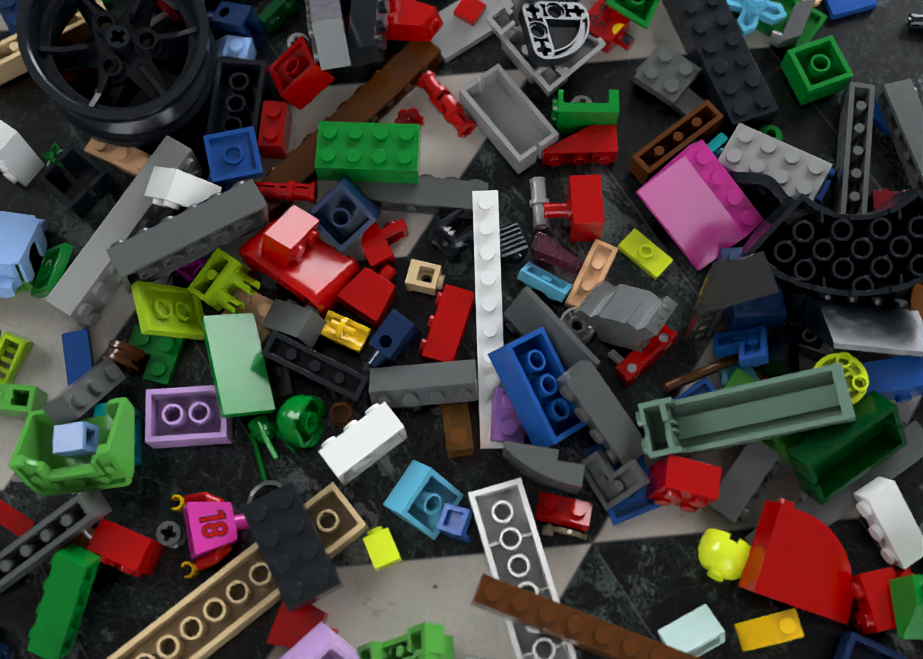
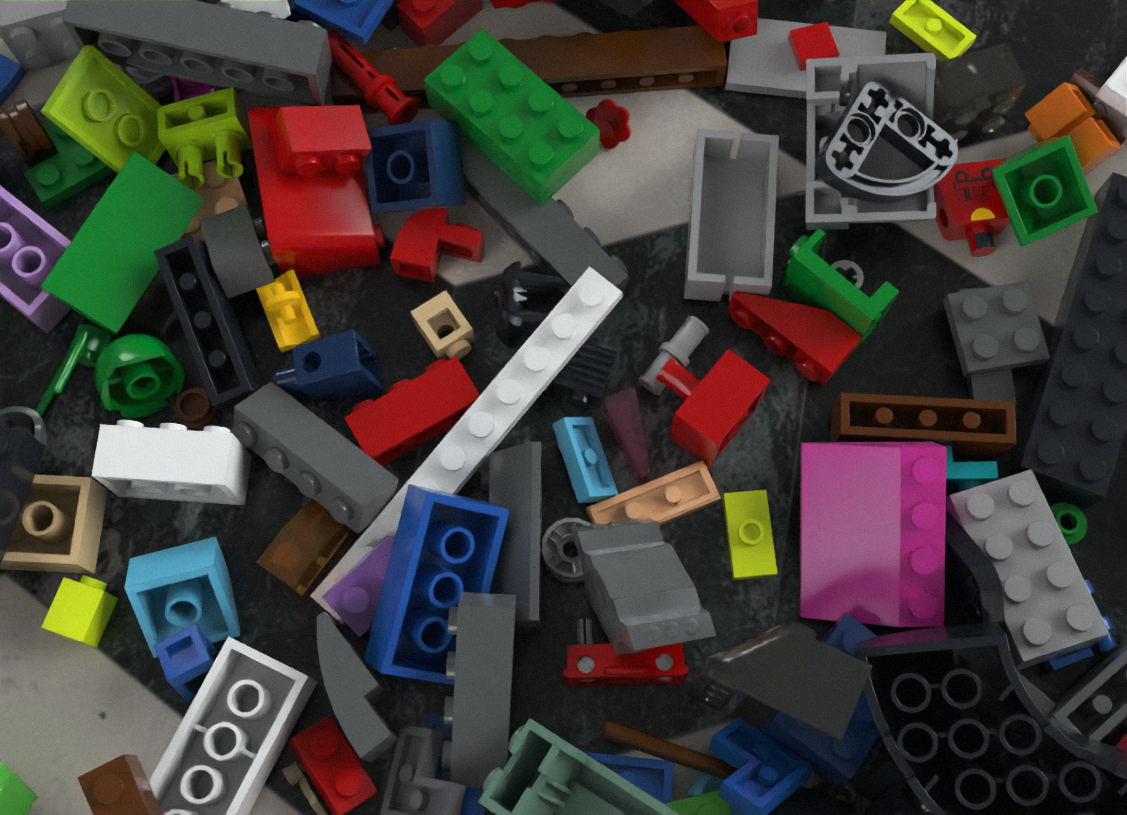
camera: 40 degrees right, 0 degrees up
(370, 294) = (363, 292): red torso -> none
(446, 104) = (674, 139): red piece -> none

